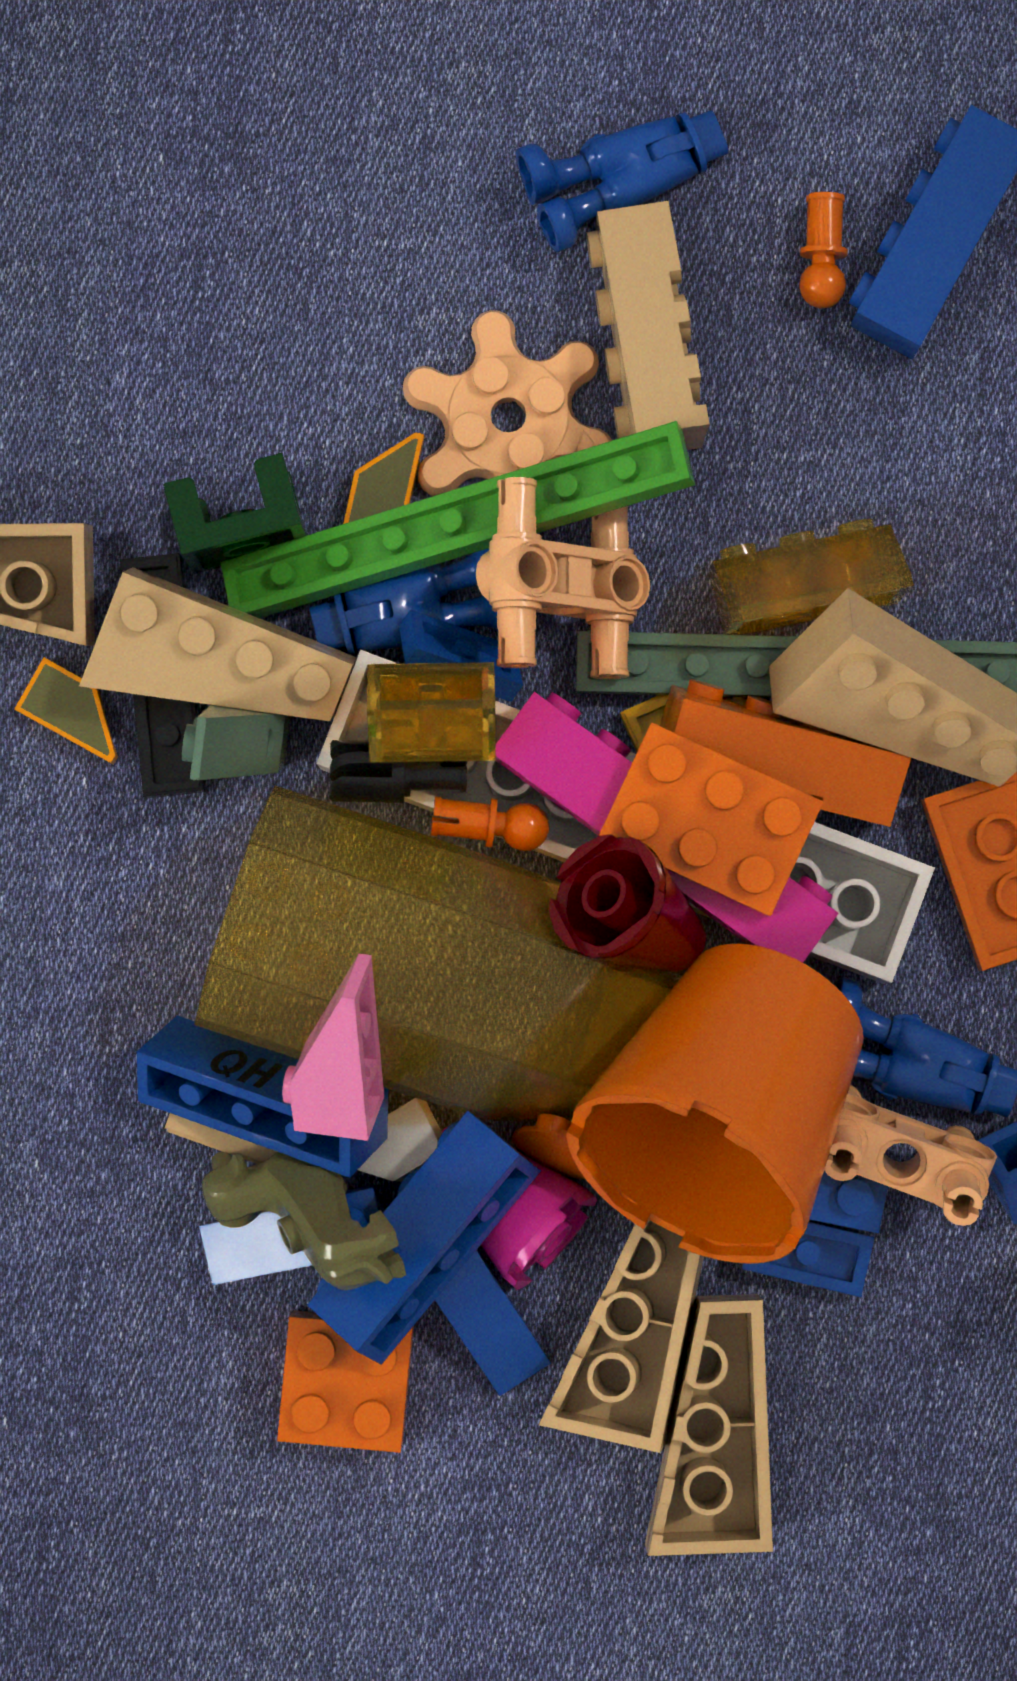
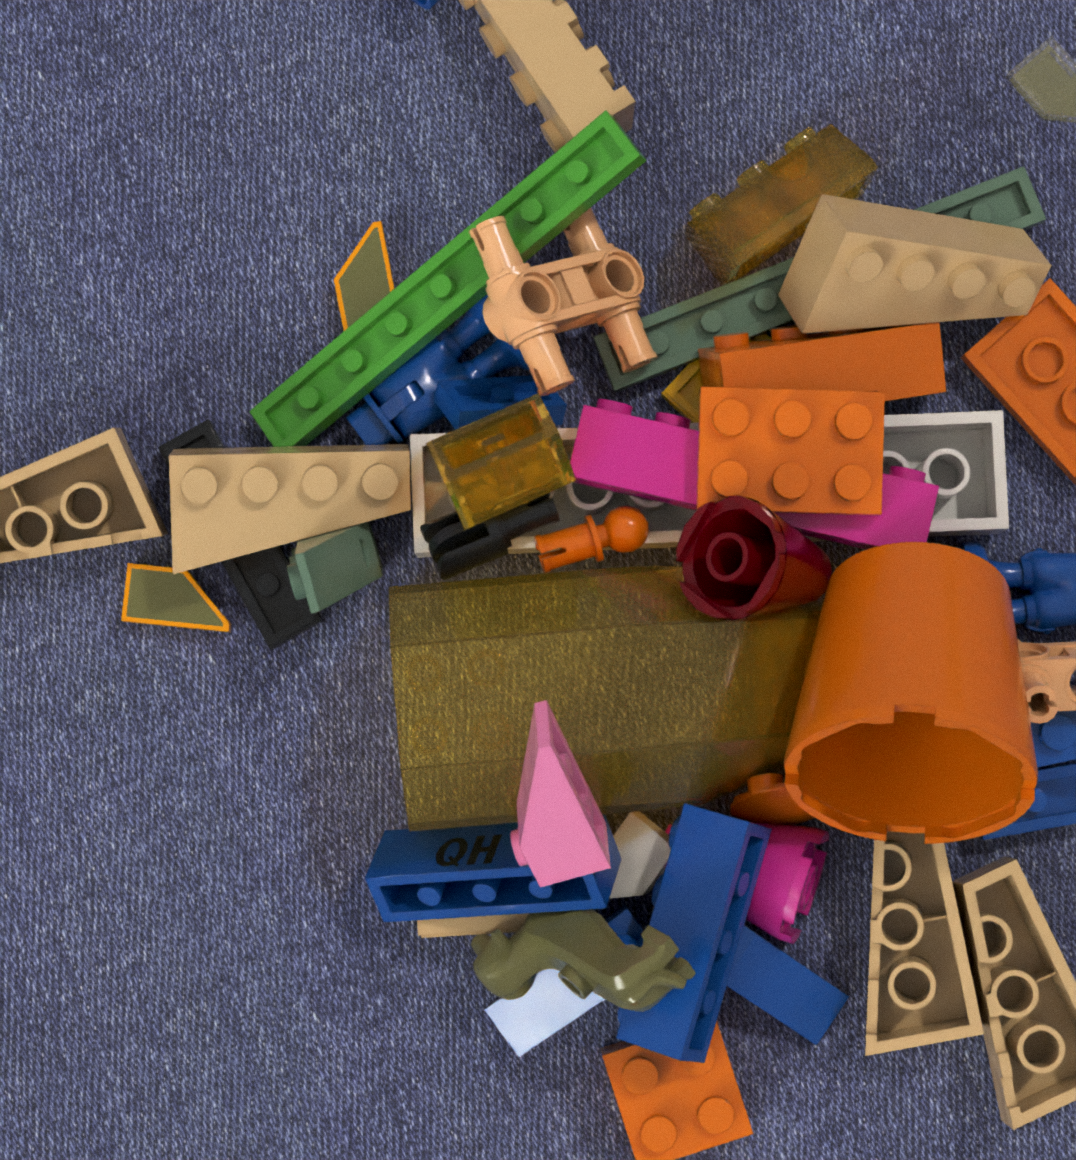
camera: 20 degrees left, 0 degrees up
(240, 532) = (256, 375): dark green panel -> none
(500, 376) = (423, 142): light nougat plate -> none

